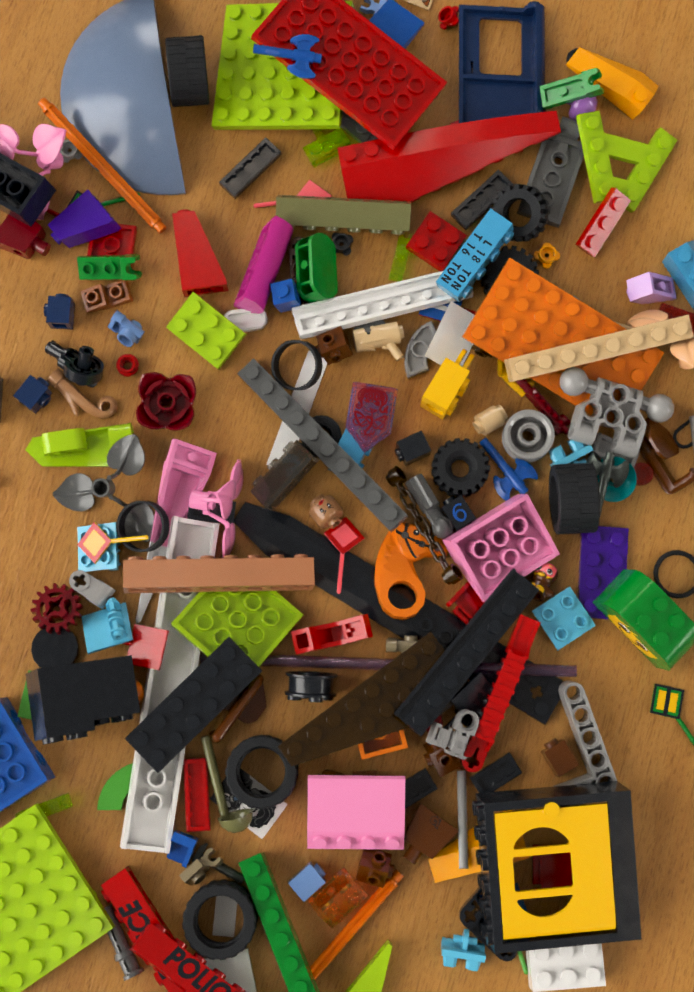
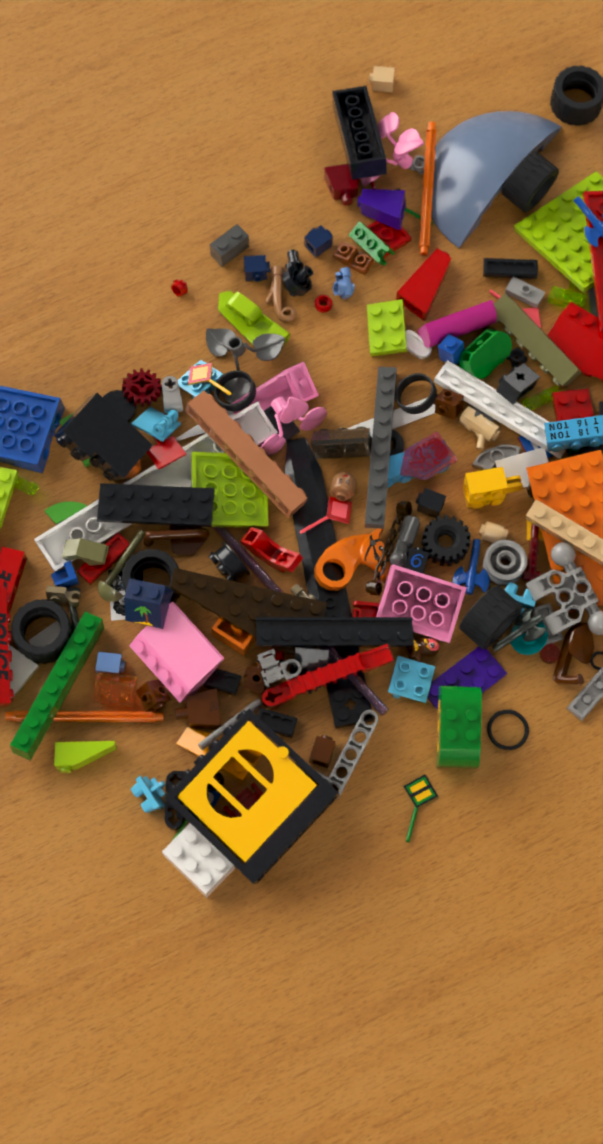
camera: 50 degrees right, 10 degrees down
(155, 389) = (321, 330): dark red brick -> none
(178, 810) = (86, 550): none -> olive slope
(285, 177) = (524, 292): none -> light grey plate
(289, 802) = (146, 603): none -> dark blue slope
(371, 267) = (517, 383): none -> black brick

